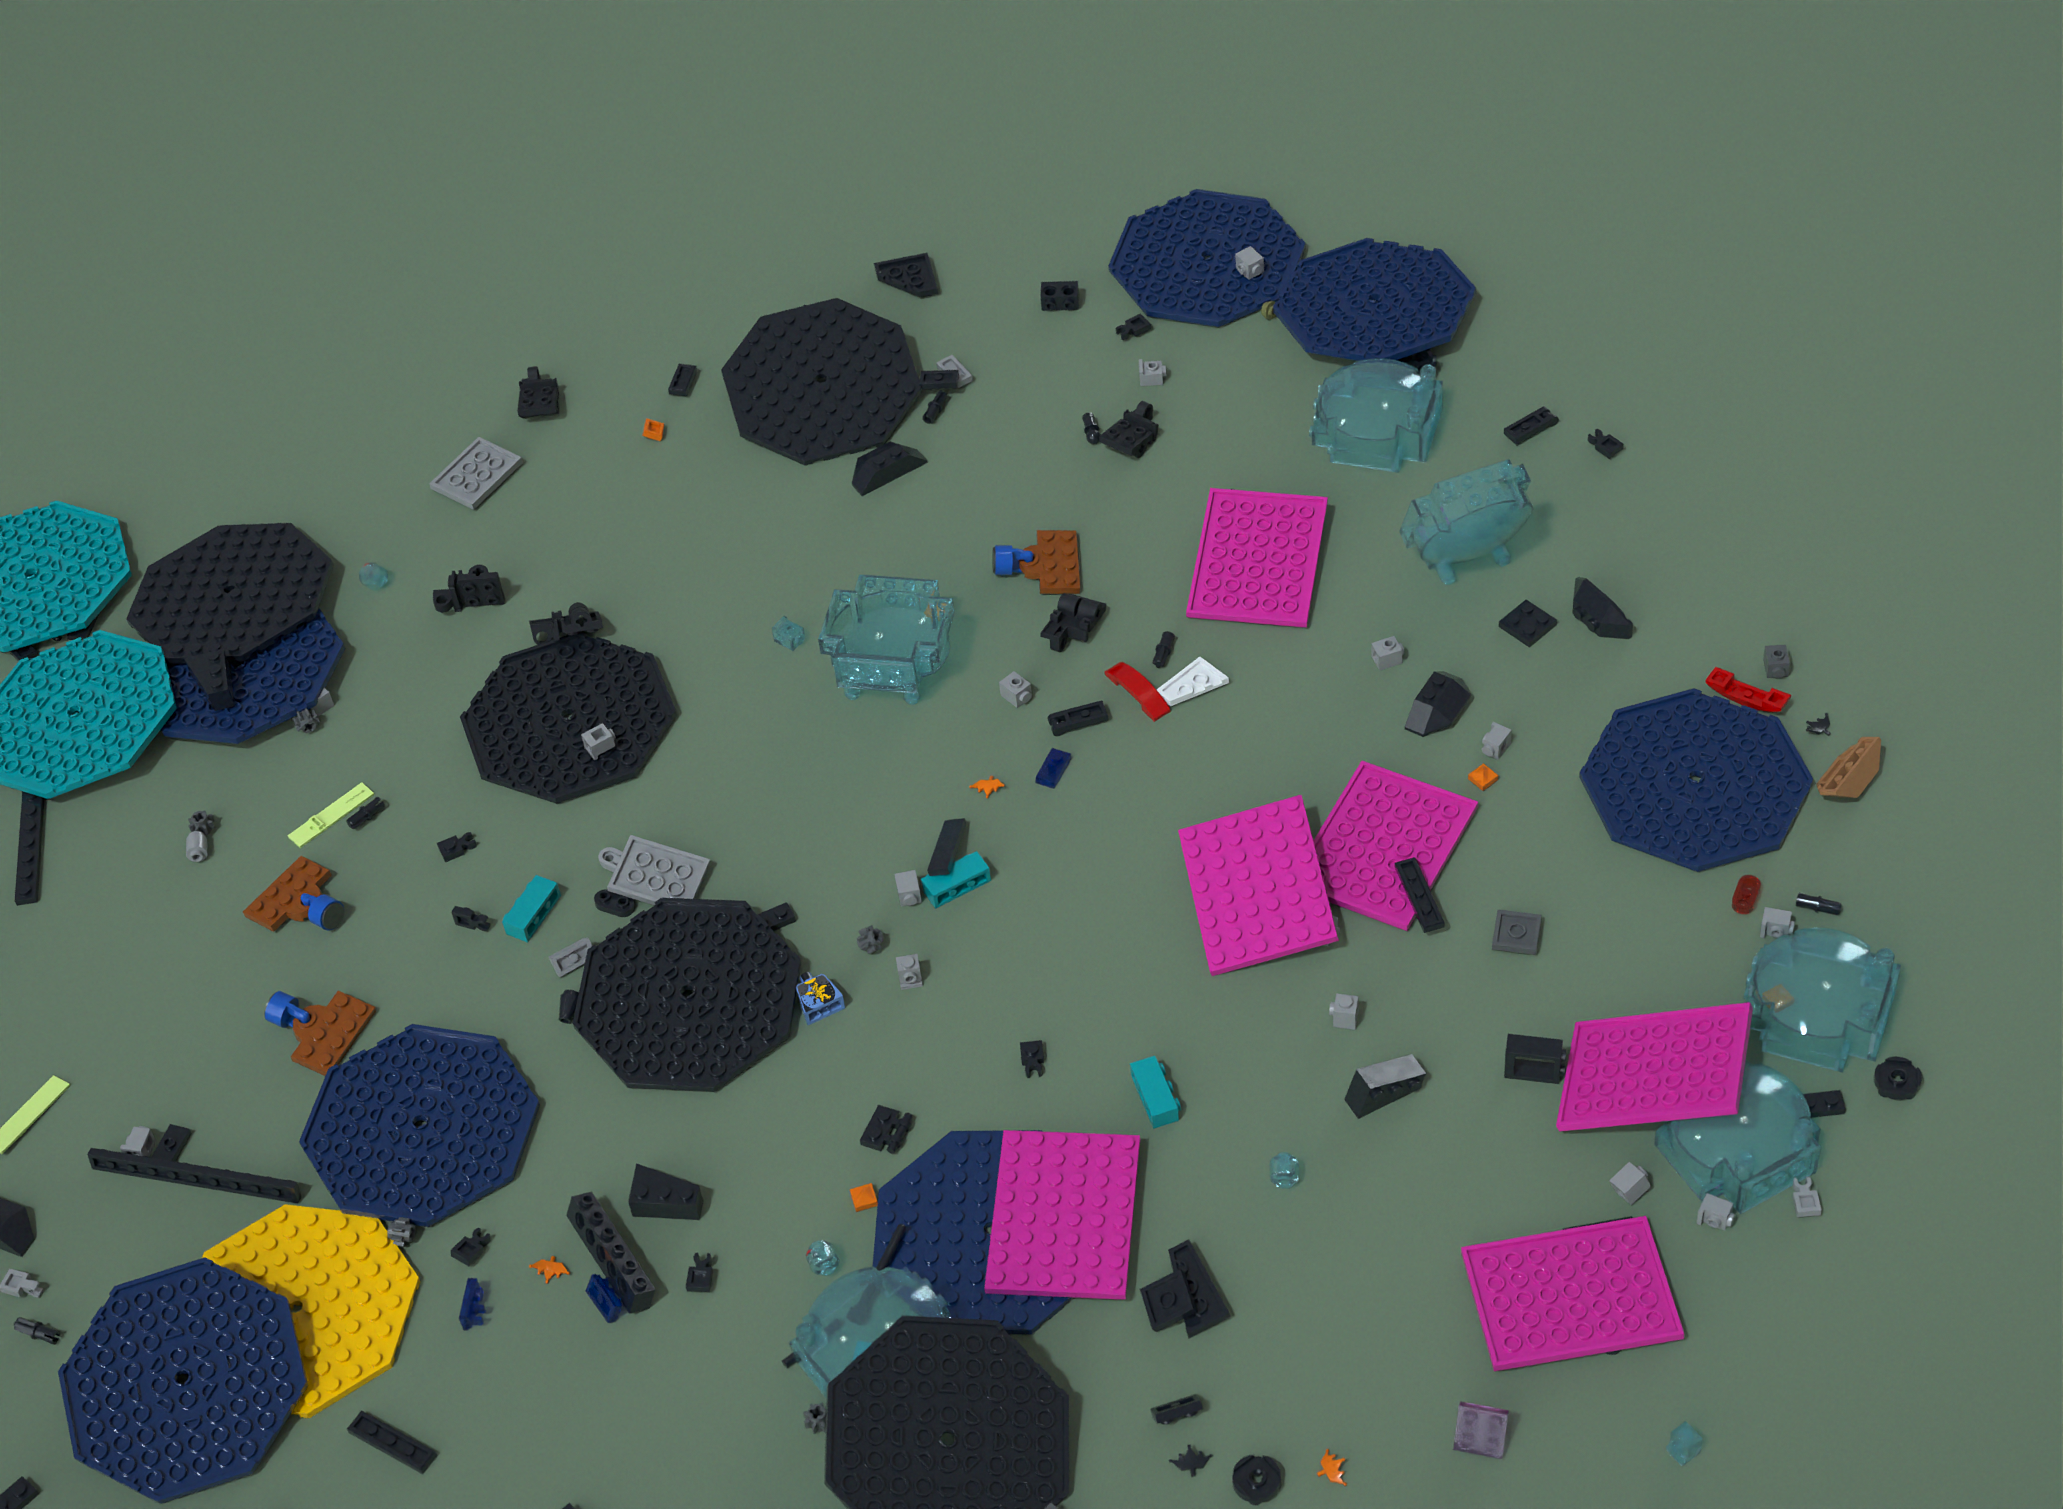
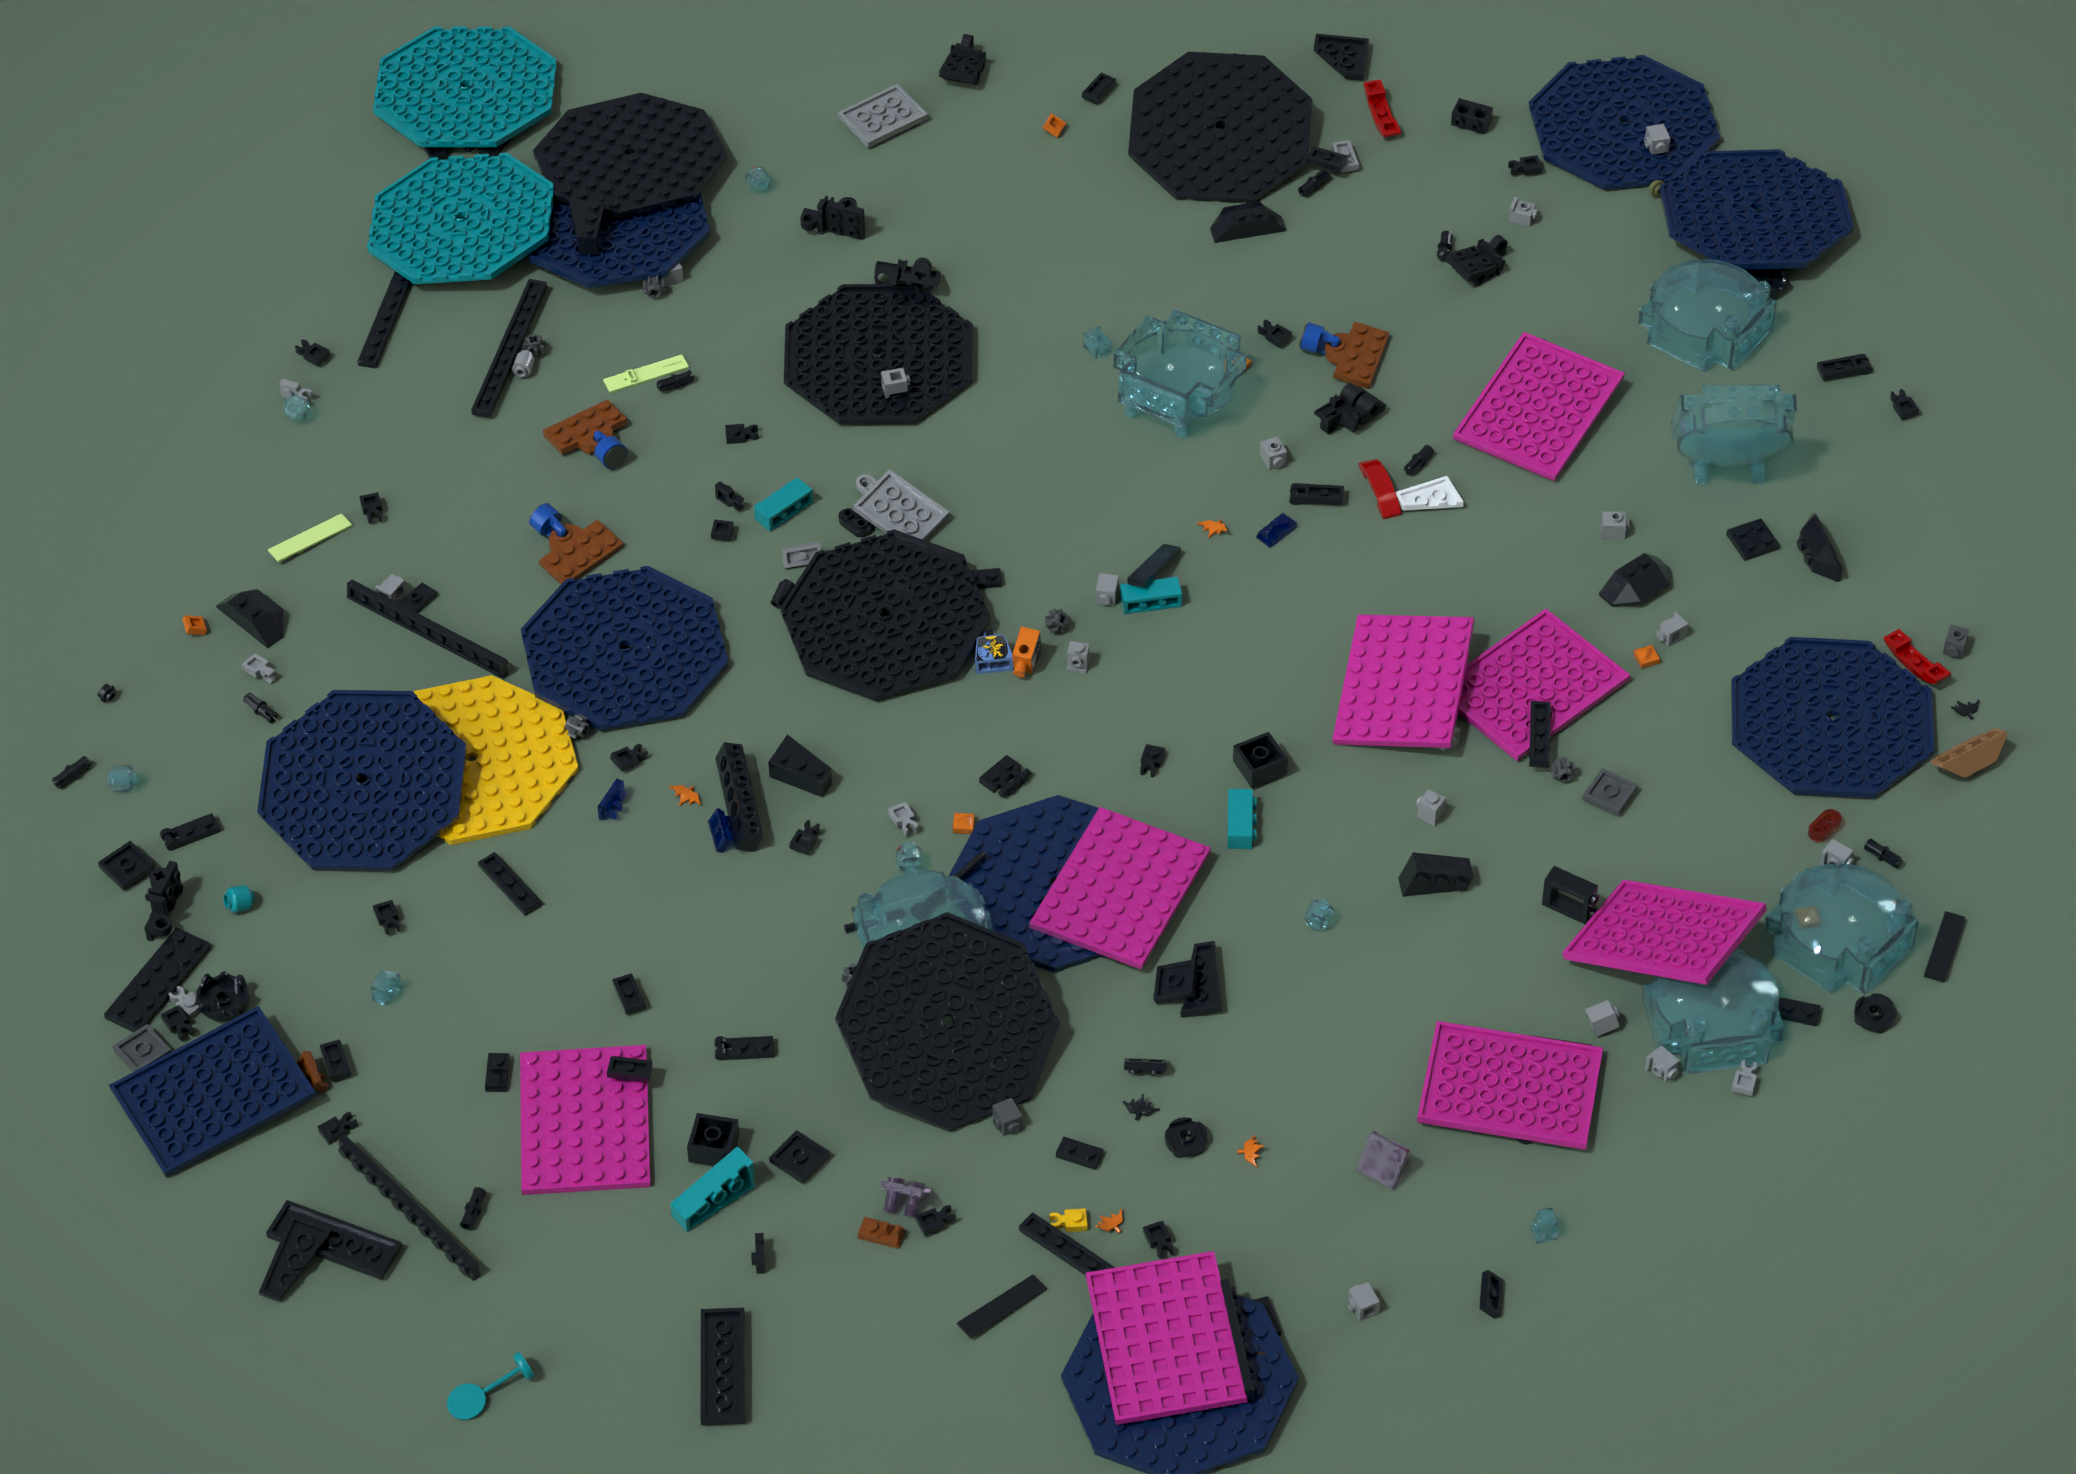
camera: 15 degrees right, 0 degrees up
(84, 1056) = (371, 506): none -> black plate
(175, 835) = (509, 348): none -> black plate
(476, 957) = (722, 530): none -> black plate
(796, 1212) = (903, 816): none -> light grey plate
(853, 984) = (1026, 651): none -> orange torso
(964, 568) = (1275, 334): none -> black plate
(968, 317) = (1380, 109): none -> red slope
(1147, 1020) = (1260, 759): none -> black brick
(1459, 924) = (1563, 769): none -> dark grey gear
(1928, 982) = (1944, 946): none -> black tile

